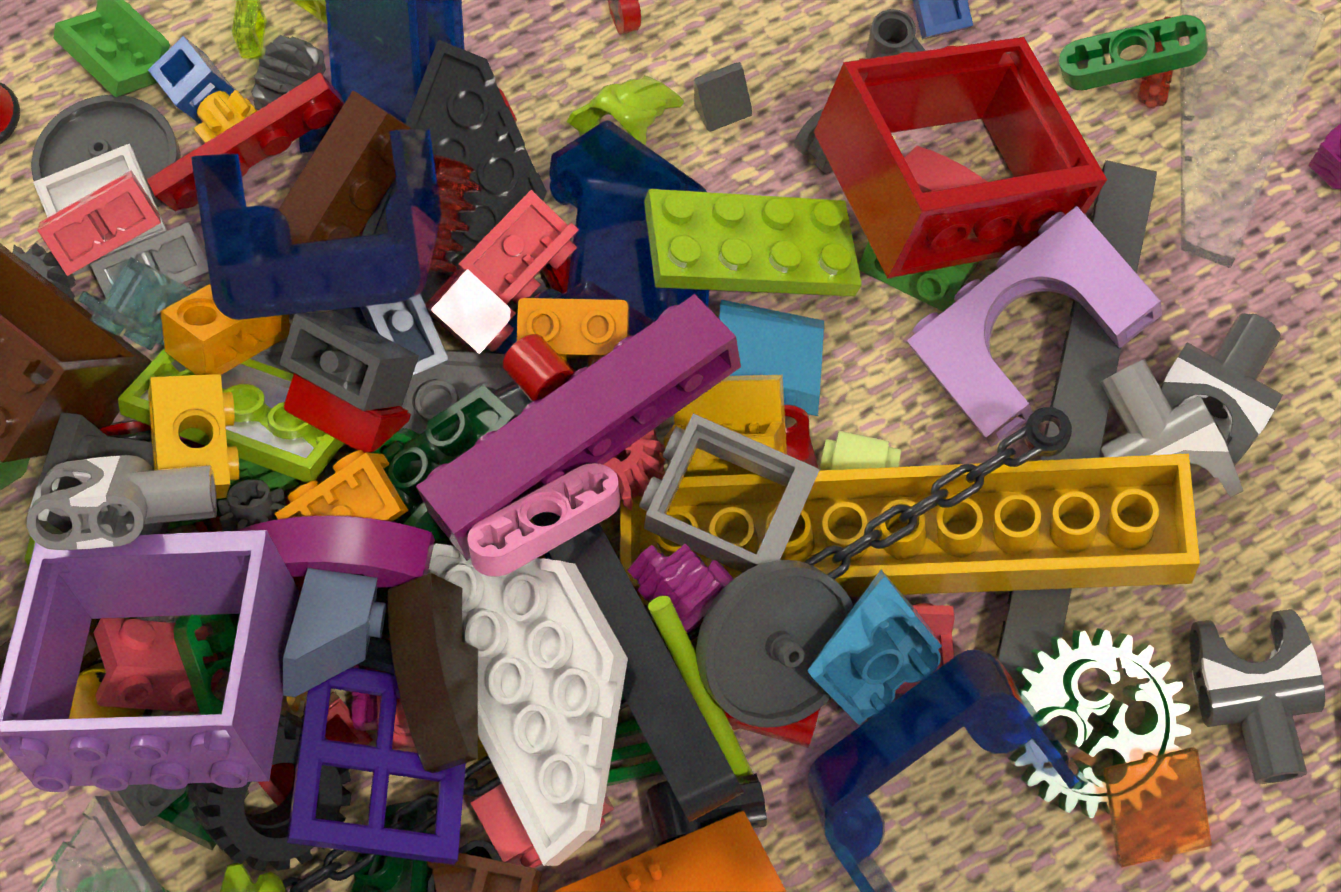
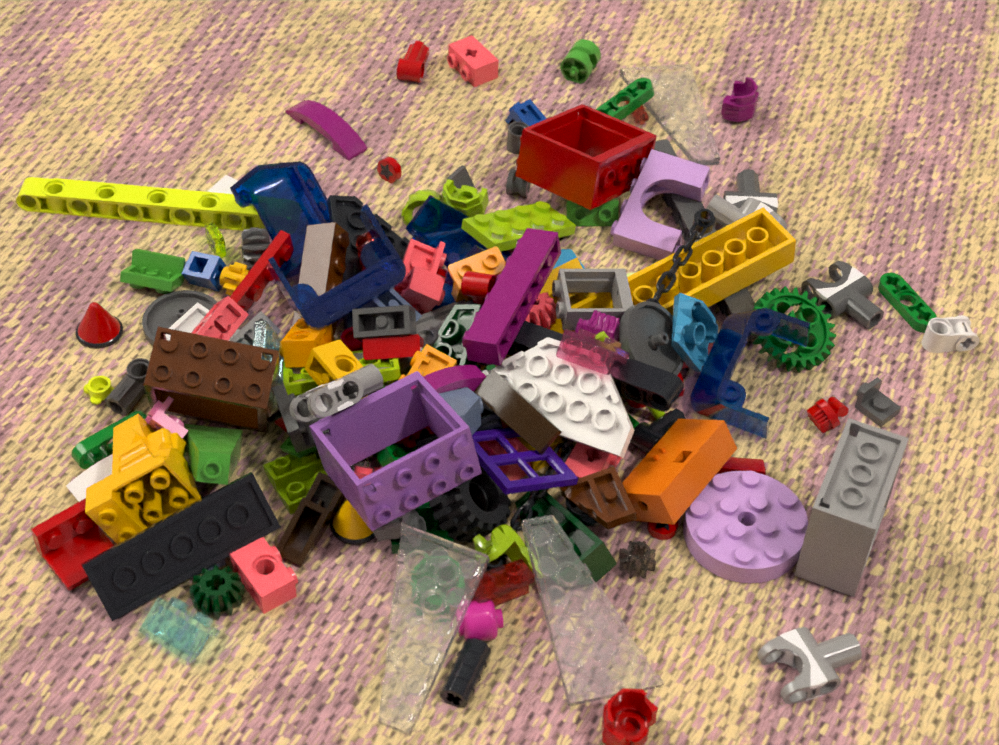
camera: 35 degrees left, 20 degrees down
(588, 488) = (526, 330): bright pink beam -> none
(612, 638) = (590, 353): none -> clear pink bracket
(699, 139) = (466, 199): none -> lime hair
(1157, 807) = (837, 348): clear orange piece -> none

